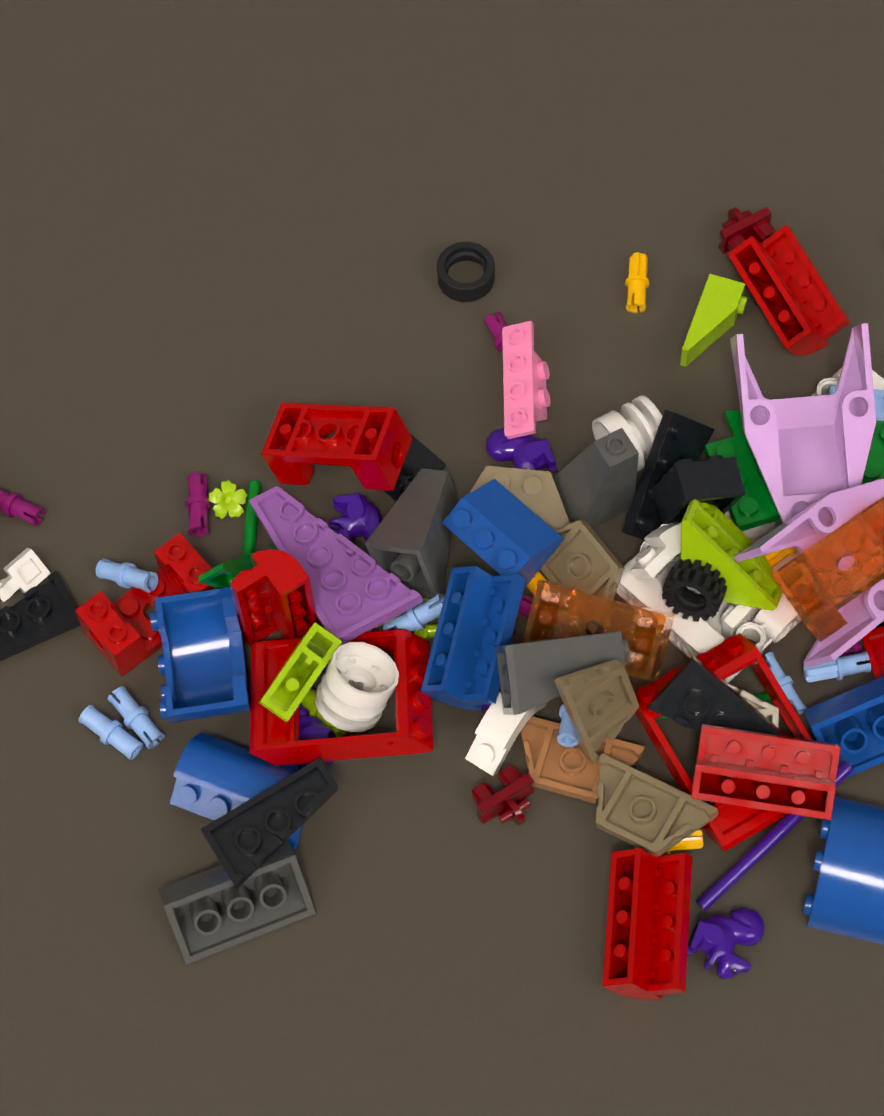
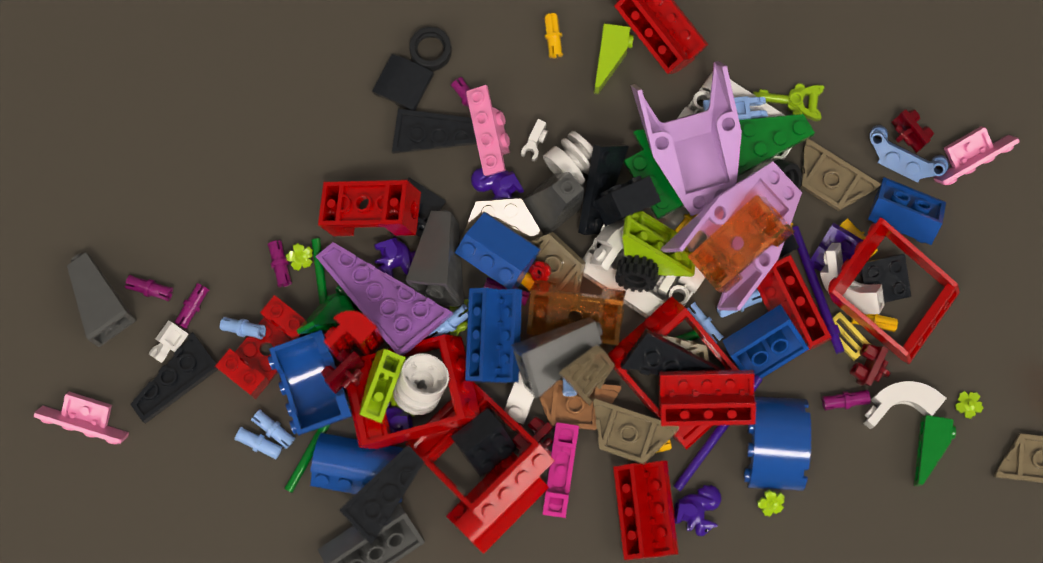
camera: 15 degrees left, 15 degrees up
(64, 537) = (191, 306): none -> magenta pin
(168, 770) = (303, 463): none -> green bar
(252, 651) = (345, 373): none -> dark red hips
(419, 307) = (403, 82): none -> black slope
(429, 782) = (484, 442): none -> black brick
(433, 873) = (474, 529): none -> red brick
(444, 372) = (431, 131): none -> black wing
(446, 842) = (508, 484): none -> red window
(534, 845) = (560, 470): none -> dark pink slope
(565, 569) = (543, 267): none -> red plate
(589, 401) = (537, 135): none -> white plate
(838, 951) = (772, 502): none -> lime plant

